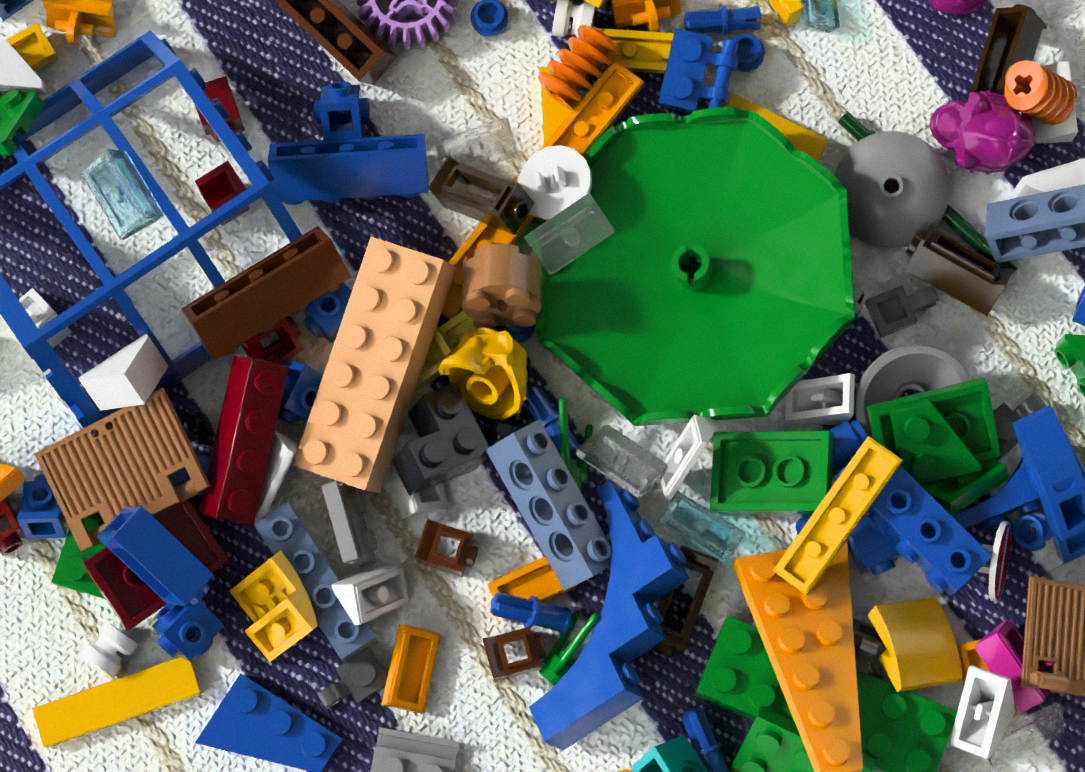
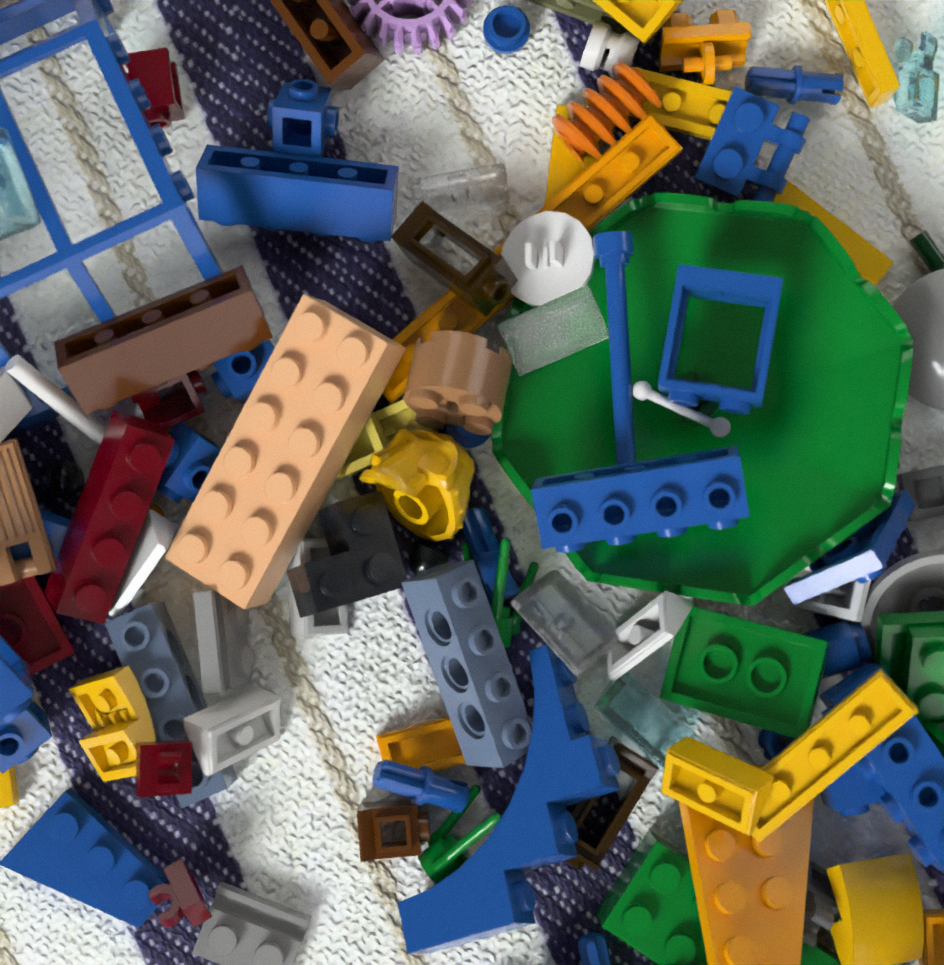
camera: 10 degrees right, 10 degrees up
(188, 357) = (55, 398): none -> white bar
(220, 187) = (134, 190): dark red window -> none
(323, 622) = (163, 768): none -> dark red tile
(354, 734) = (184, 894): none -> dark red tile
(359, 677) = (203, 822): dark grey plate -> none
(411, 669) = (267, 823): light orange tile -> none
(429, 542) = (316, 677): reddish brown window -> none
(605, 165) = (614, 254): none -> blue piece
(659, 344) = (640, 499): none -> blue brick
(696, 175) = (723, 287): none -> blue window
(711, 281) = (718, 427): none -> white hinge
(749, 52) = (820, 132): blue plate -> none
(762, 556) = (716, 784): none -> yellow slope
(838, 358) = (858, 556): none -> blue wing

